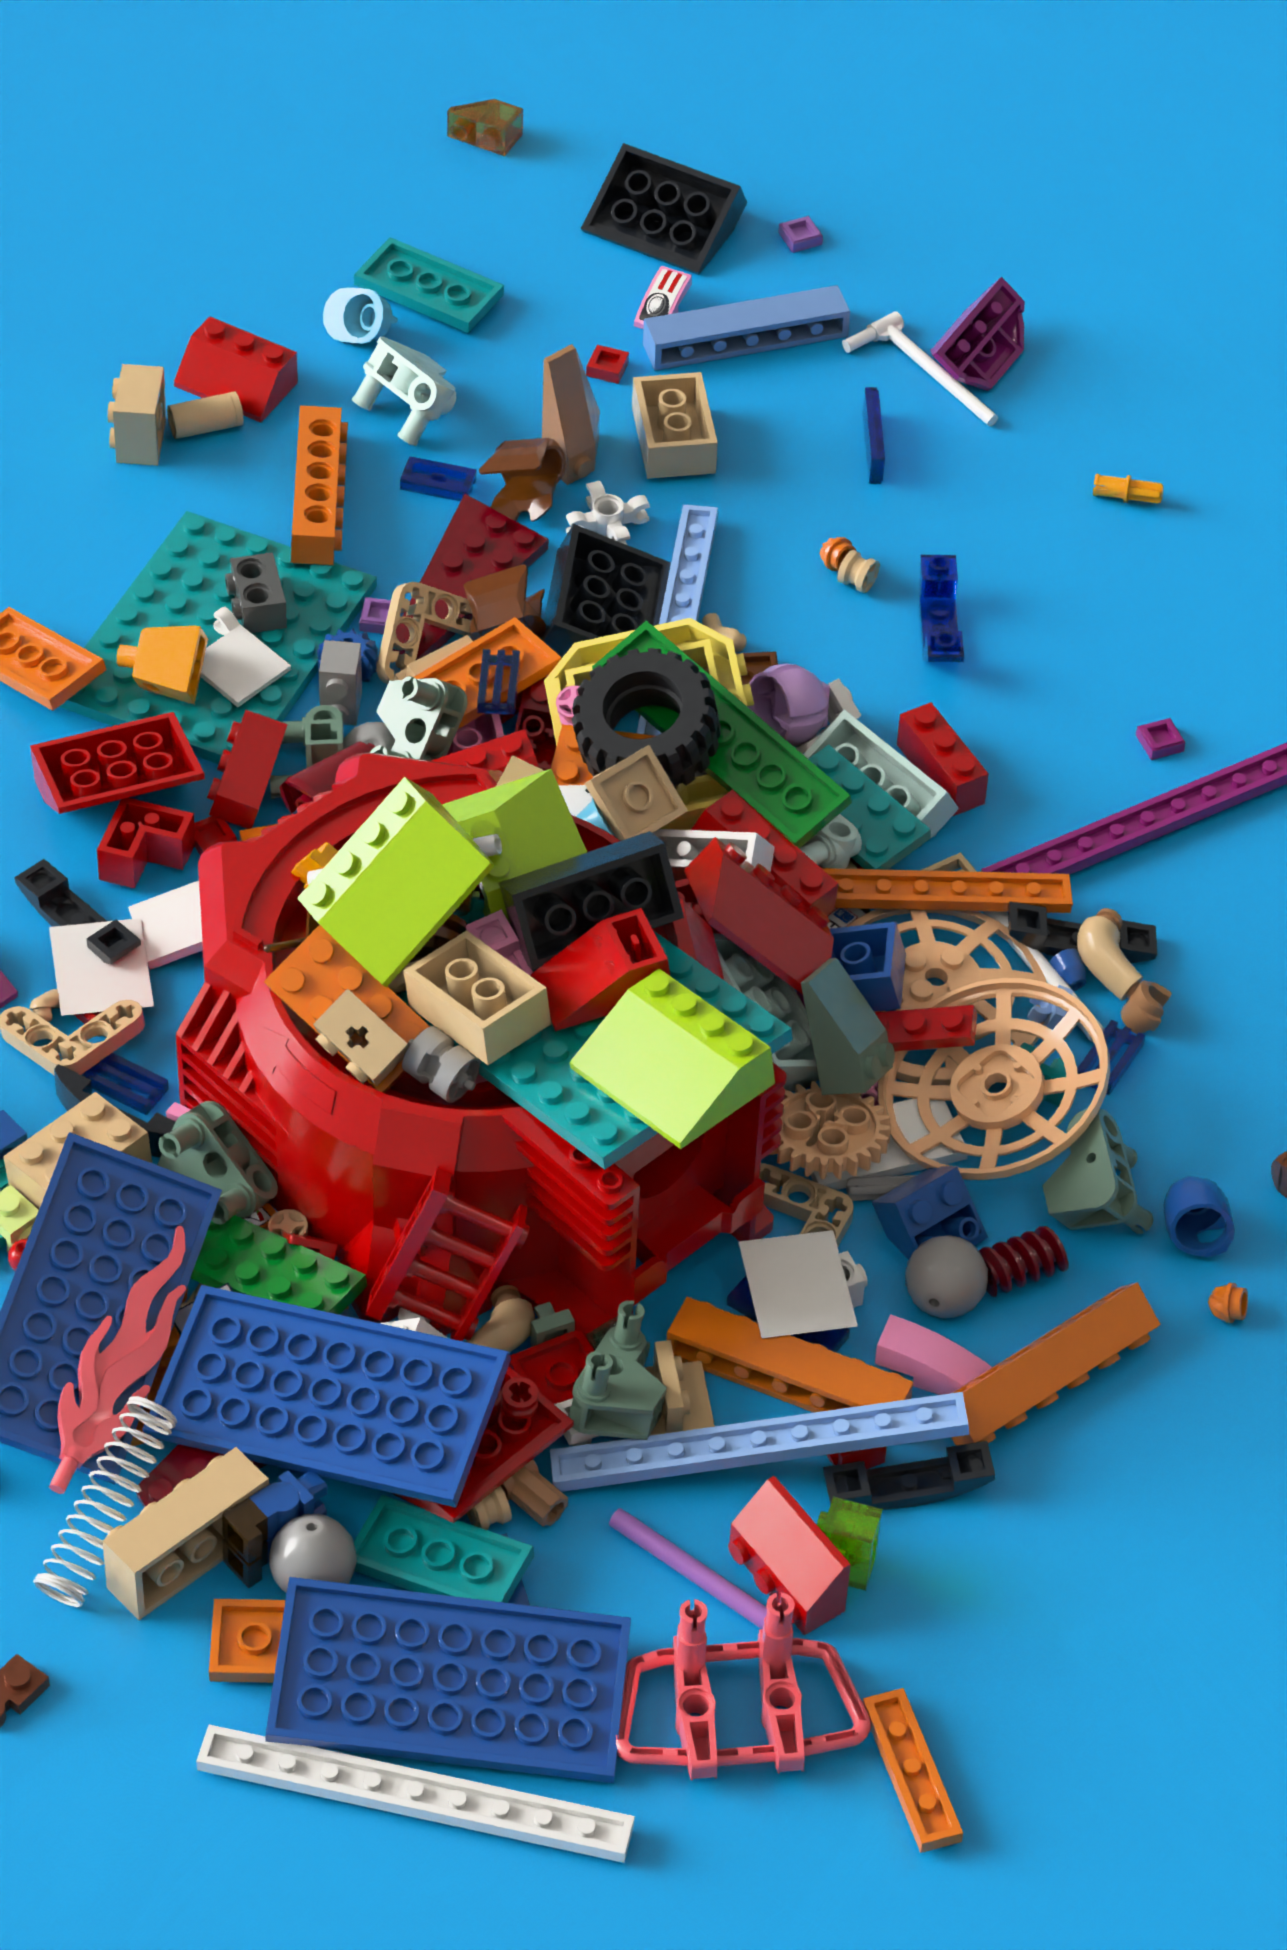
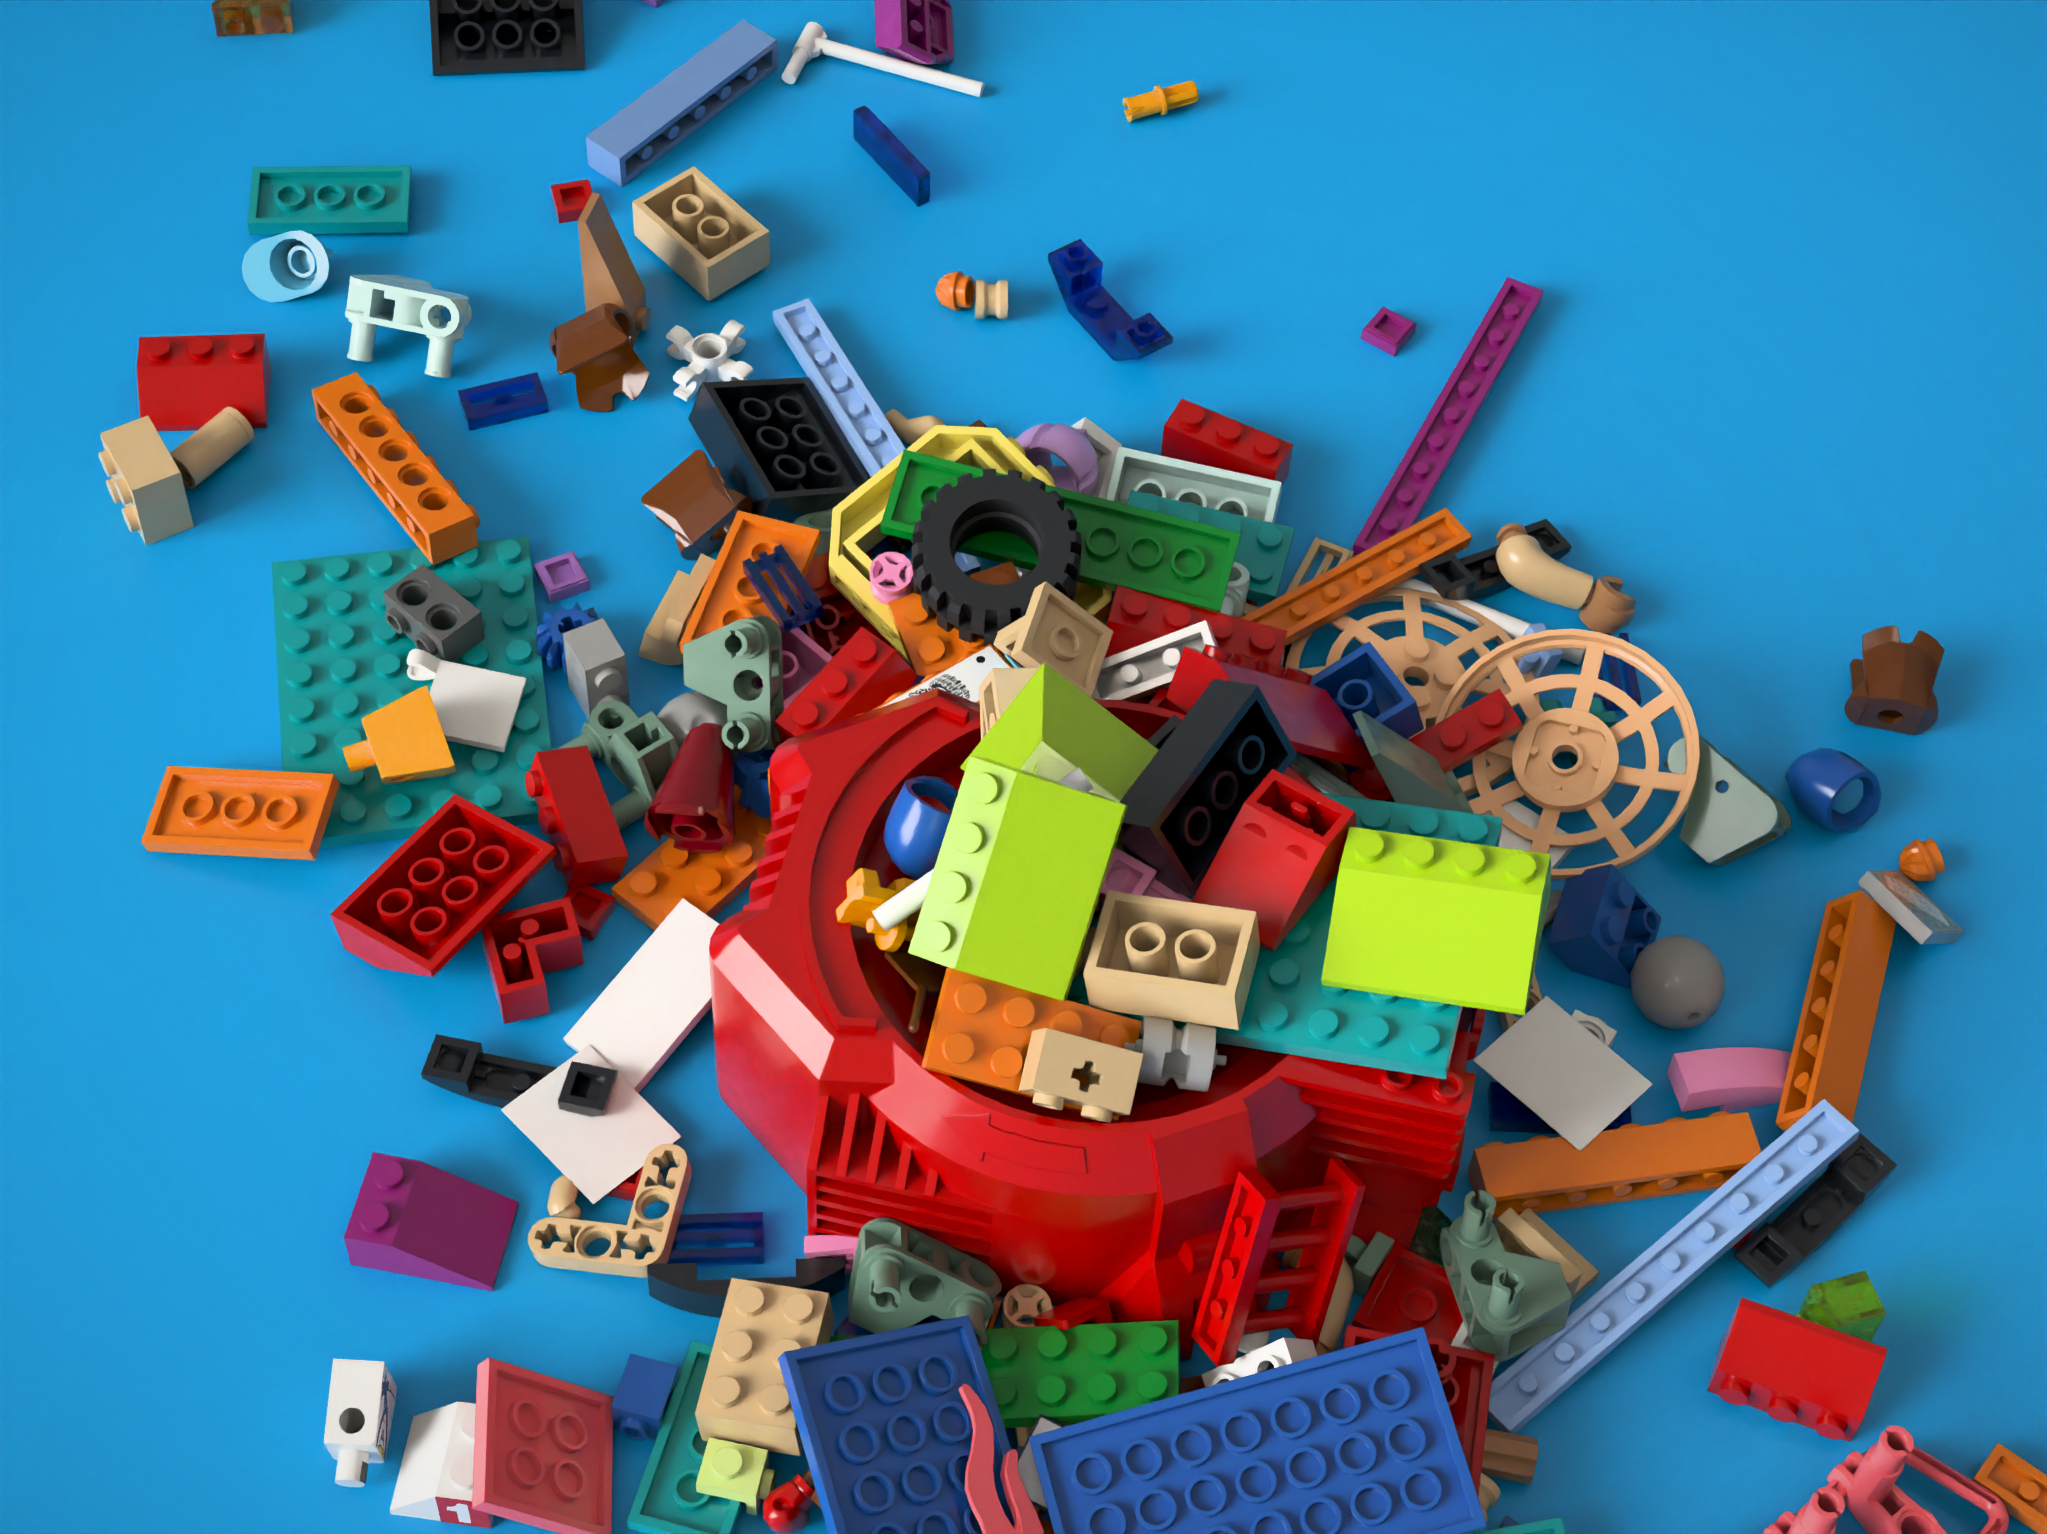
camera: 35 degrees left, 5 degrees up
(422, 612) = (622, 552): tan beam -> none
(473, 546) = (607, 467): dark red wing -> none
(663, 294) = (576, 108): slope -> none
(689, 1567) = (1711, 1439): medium lavender piece -> none
(1023, 1256) = (1727, 918): dark red piece -> none
(1070, 968) = (1509, 601): blue hose -> none
(1181, 1323) = (1910, 907): none -> light grey tile

